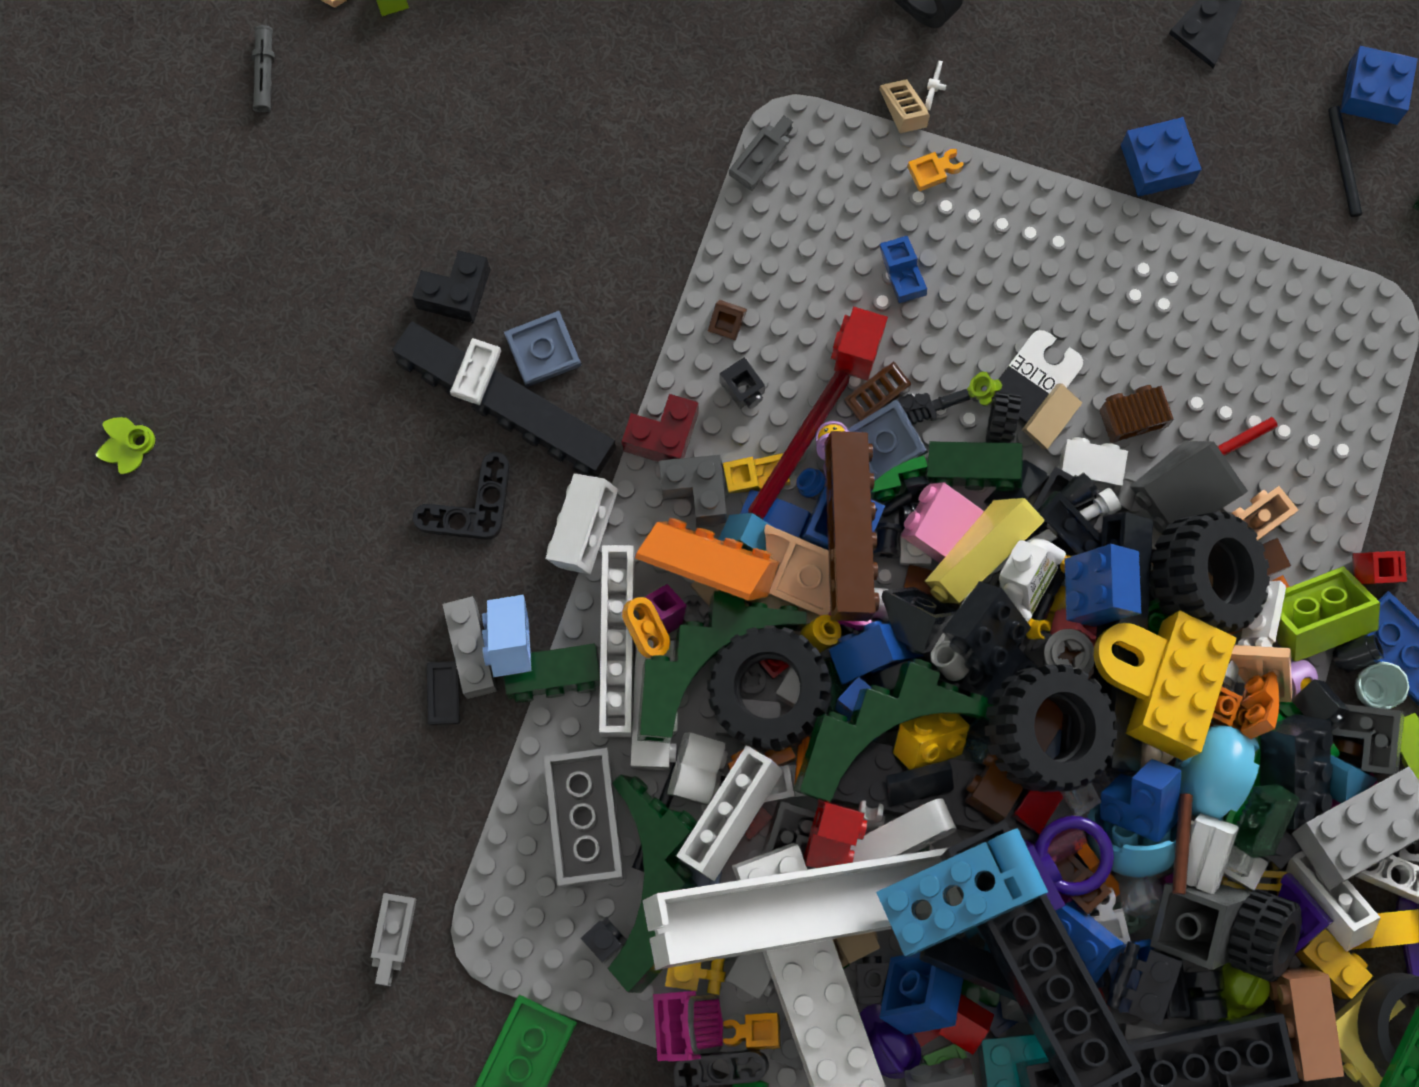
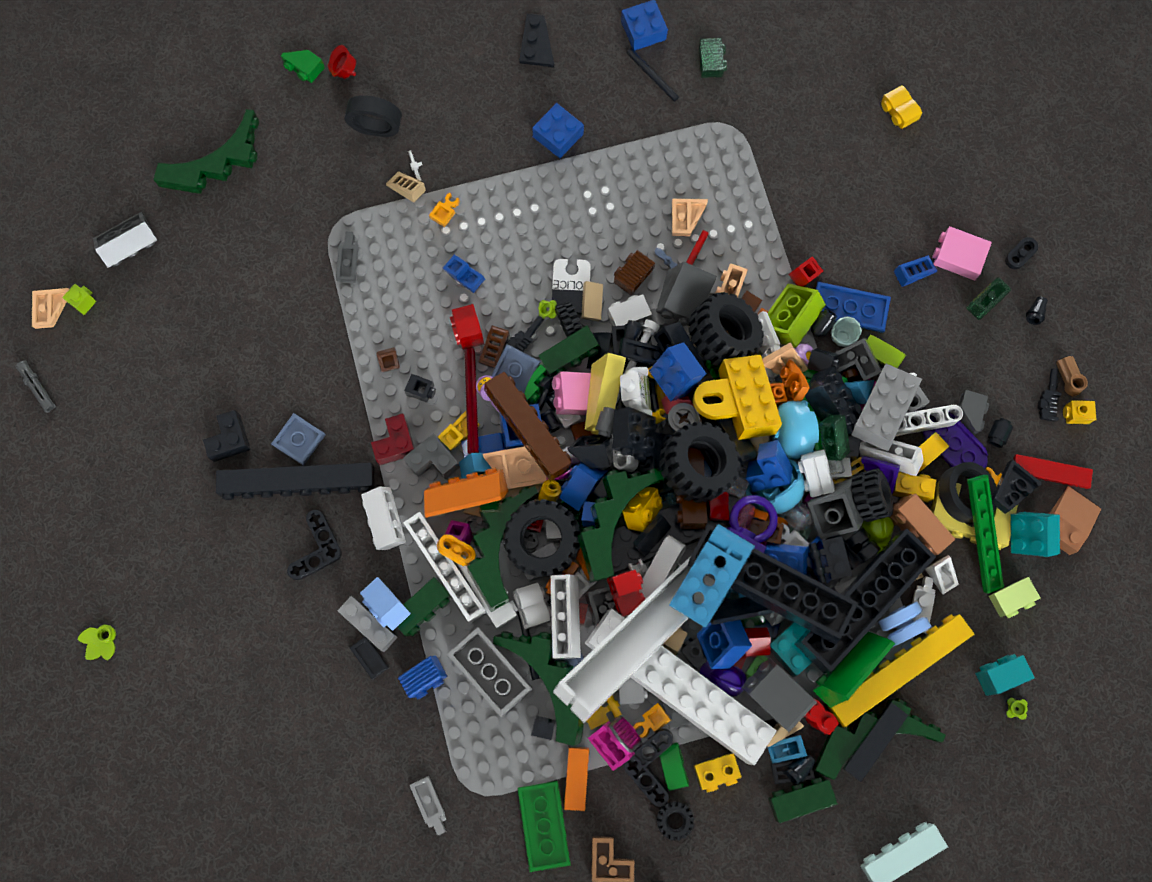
camera: 35 degrees left, 0 degrees up
(475, 371) = (270, 474): white plate -> none
(493, 765) = (422, 677): none -> blue brick
(603, 1037) = (576, 778): none -> orange tile
(810, 482) = (490, 417): blue plate -> none
(957, 589) = (605, 422): none -> dark grey brick
(1182, 844) = (802, 476): copper bar -> none
(1194, 426) = (667, 259): none -> sand blue piece
(1262, 382) = (686, 215): none -> light nougat wing

